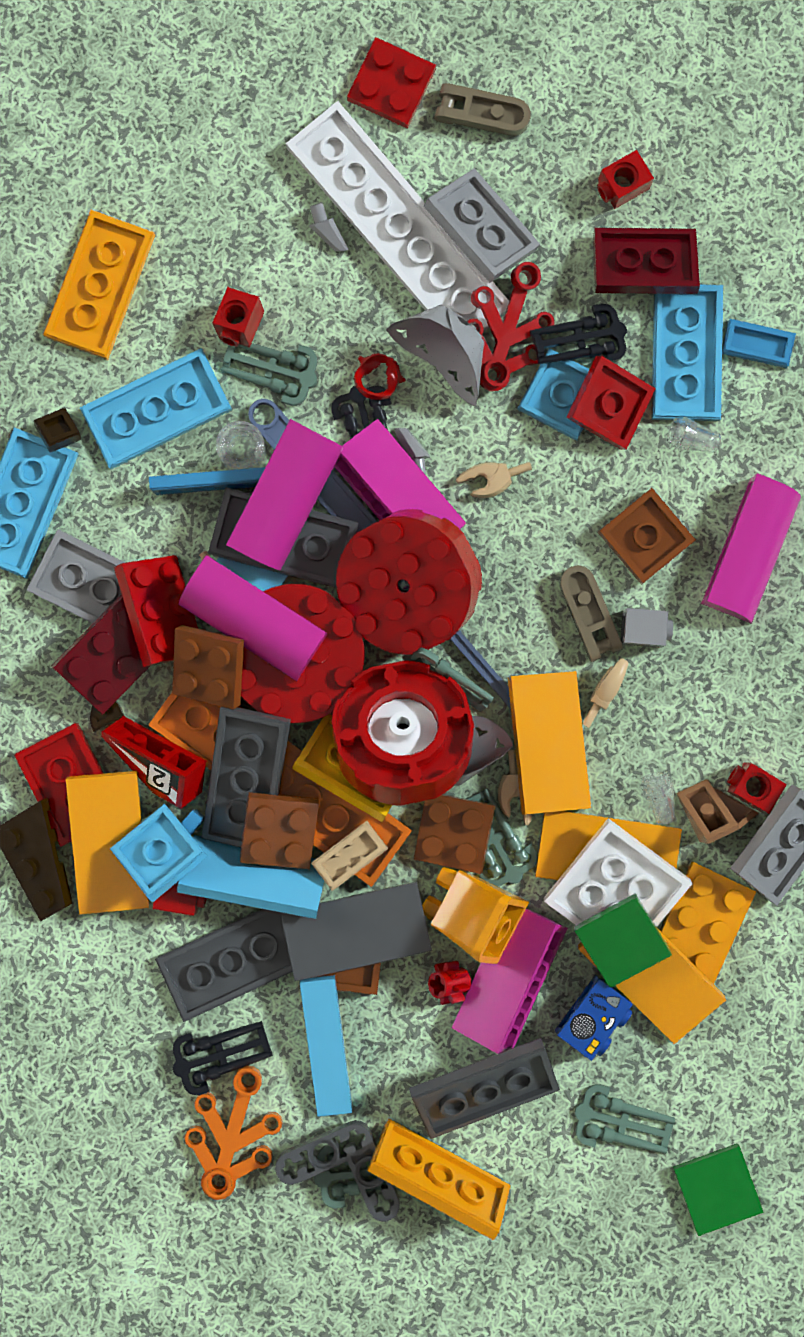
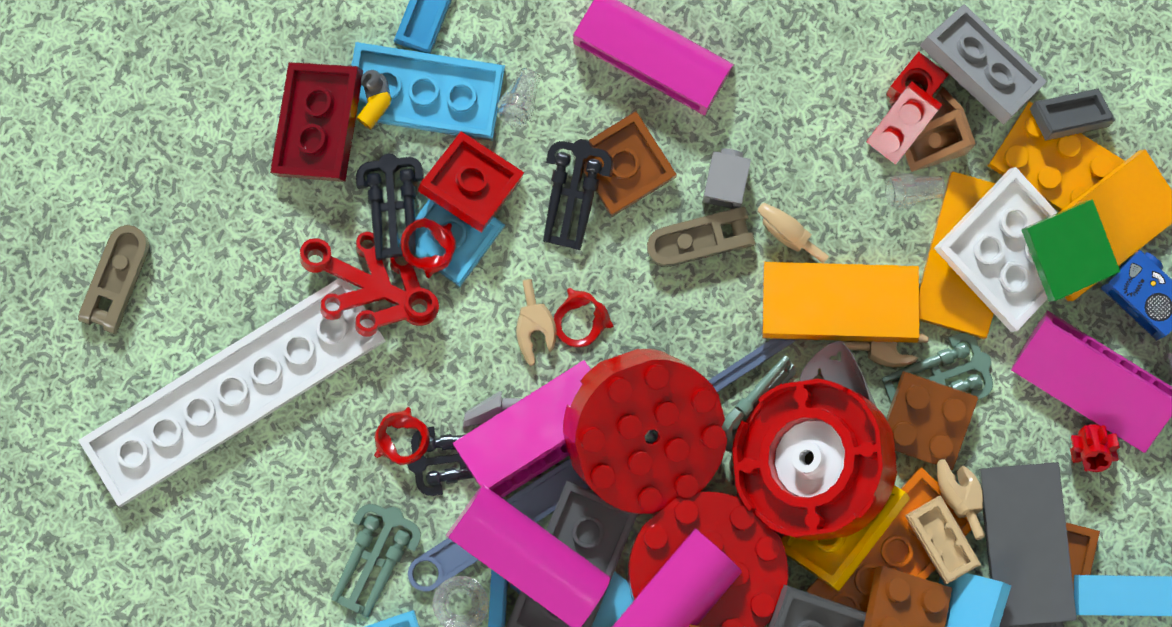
camera: 85 degrees left, 5 degrees down
(234, 305) = (296, 587): red brick -> none
(326, 228) = (222, 473): light grey bar -> none
(387, 871) = (963, 498): none -> tan hand
(391, 82) = (65, 377): red plate -> none
(450, 346) = (381, 351): light grey piece -> none
(475, 914) = (1022, 409): light orange hips -> none
(481, 225) = (248, 296): light grey plate -> none
(519, 511) = (576, 300): none -> red piece
(561, 382) = (442, 234): none -> red piece
(634, 170) = (213, 118): red brick -> none
(652, 495) = (581, 150): none -> black piece
(675, 310) = (377, 96): none -> arm
(719, 779) = (904, 123): none -> plate
(749, 931) = (1072, 114): none -> dark grey tile

